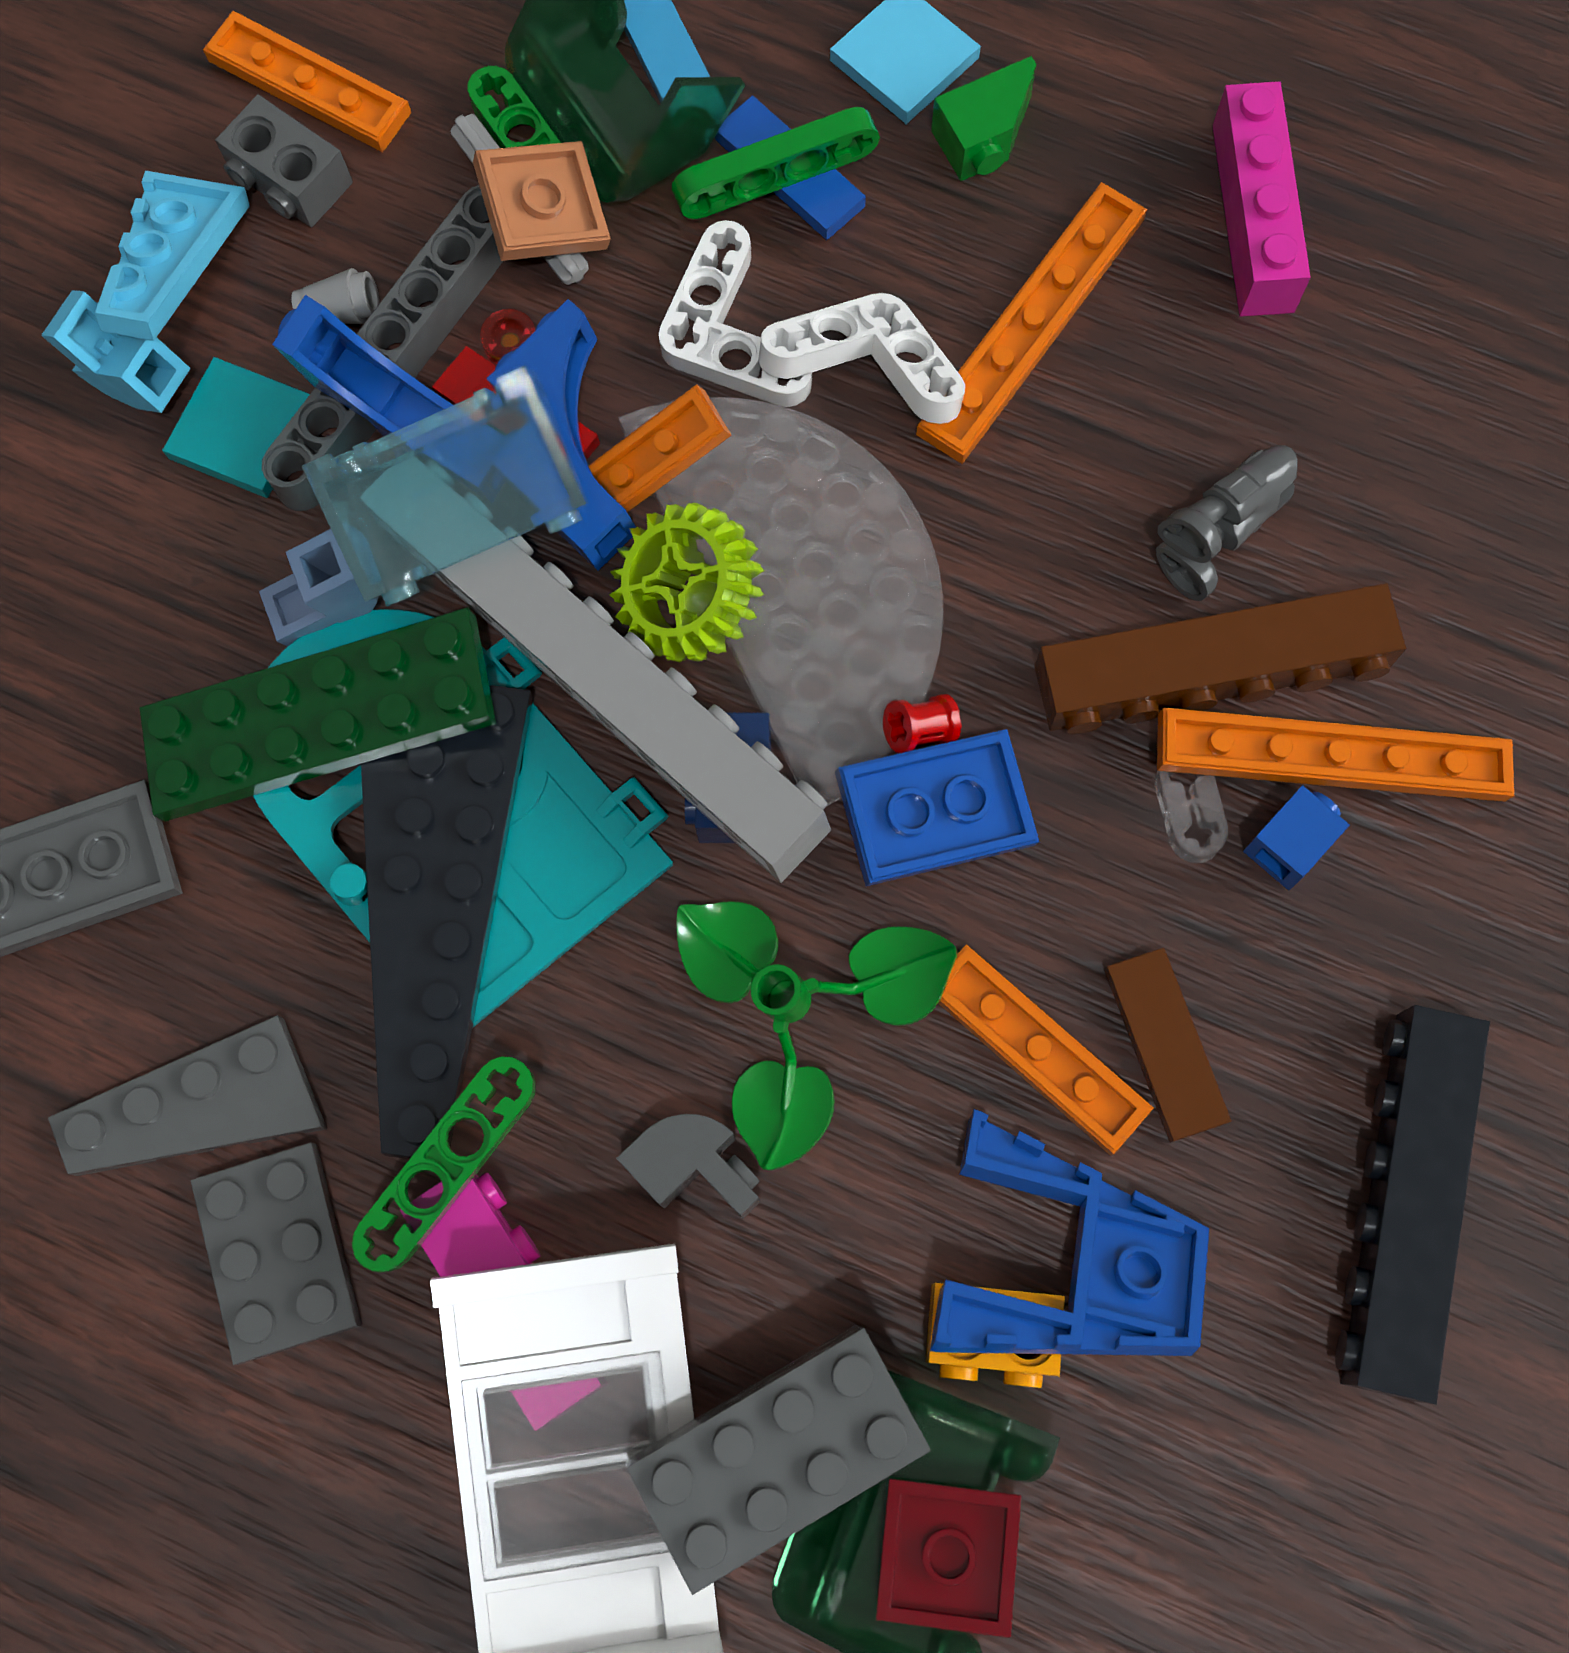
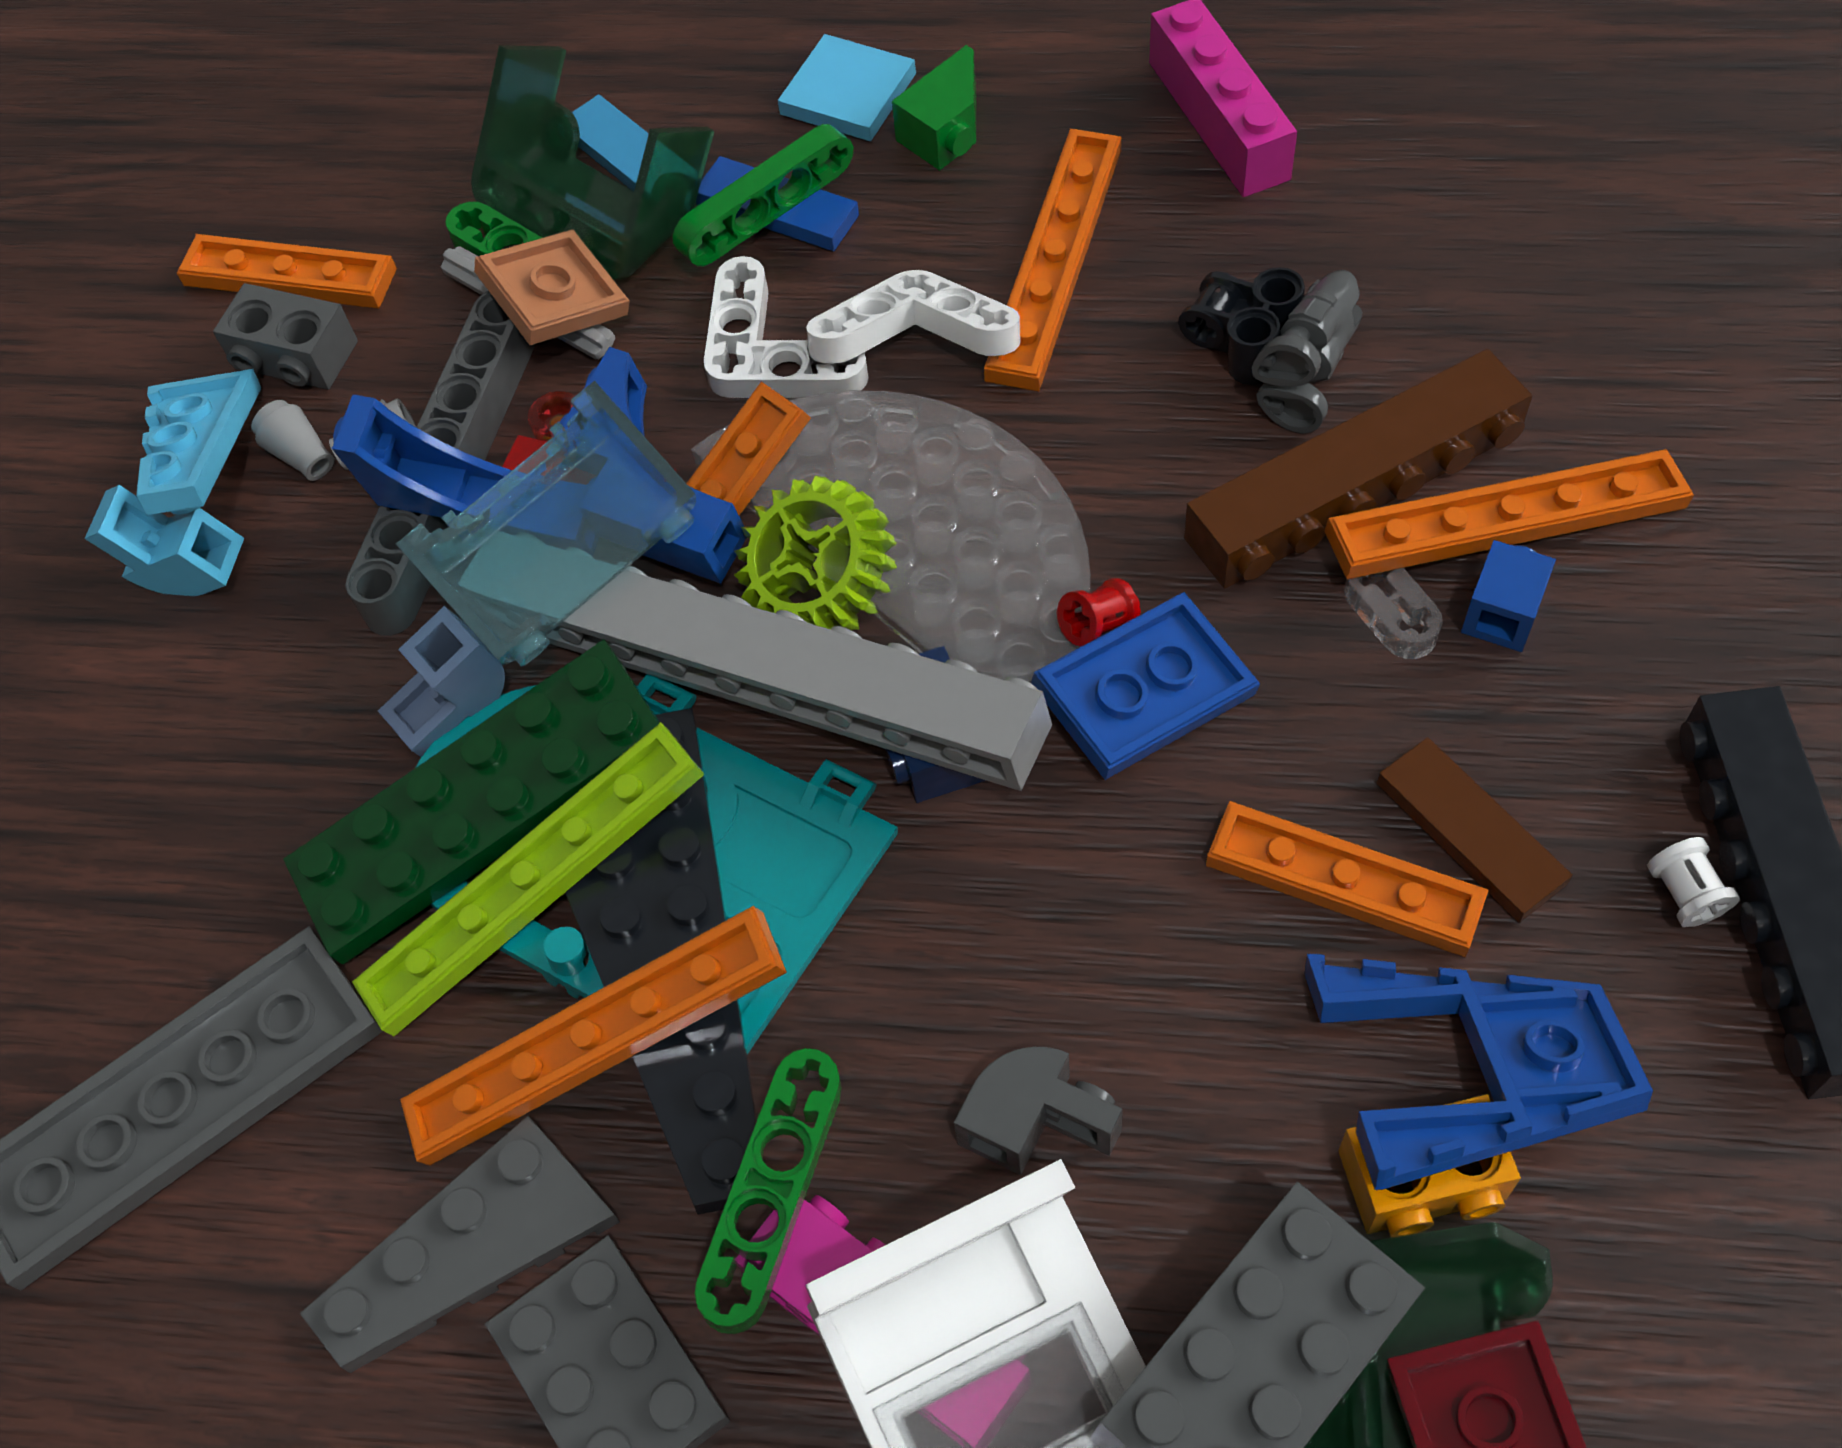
camera: 15 degrees left, 15 degrees down
(233, 425) = (302, 578): teal tile -> none
(259, 274) = (290, 437): none -> light grey cone
(338, 808) = (526, 879): none -> lime tile
(349, 973) = (592, 1035): none -> orange tile
(732, 950) = (1115, 1020): green plant -> none
(1174, 457) = (1241, 315): none -> black piece
(1341, 1147) = (1693, 882): none -> white bush

